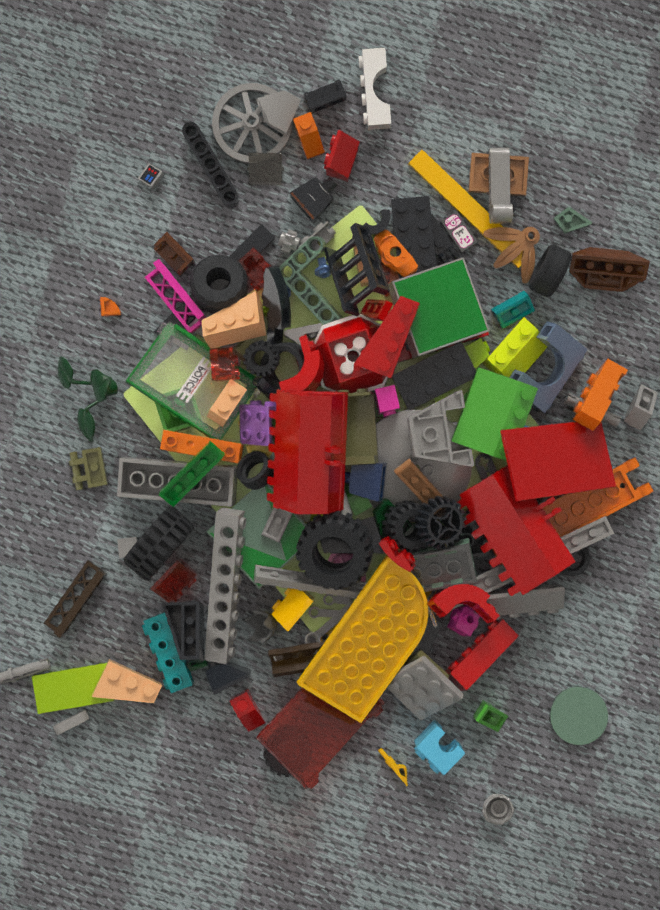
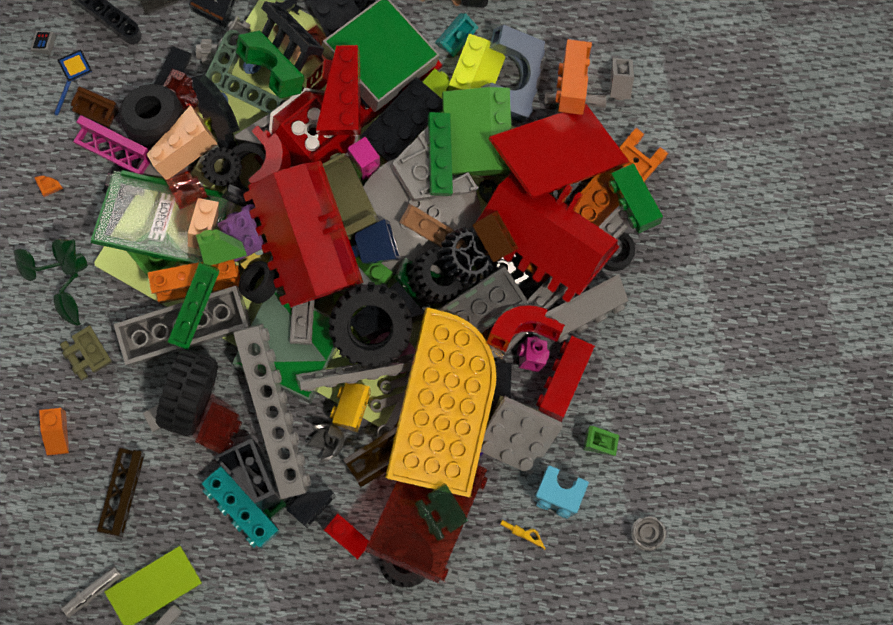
camera: 25 degrees left, 10 degrees down
(38, 525) = (54, 431): none -> orange slope
(126, 684) = (208, 556): light nougat wedge -> none
(169, 209) = (74, 67): none -> piece
(232, 433) = (218, 247): none -> bright green slope
(332, 264) = (258, 50): none -> green arch
(338, 727) = (446, 507): none -> clear green plate
(402, 558) = (442, 304): red slope -> none
(404, 263) = (328, 25): orange piece -> none
(453, 424) = (440, 154): none -> green plate
(471, 516) = (495, 236): none -> reddish brown hinge
(578, 715) = (690, 405): sand green tile -> none
(606, 524) = (635, 198): none -> green brick

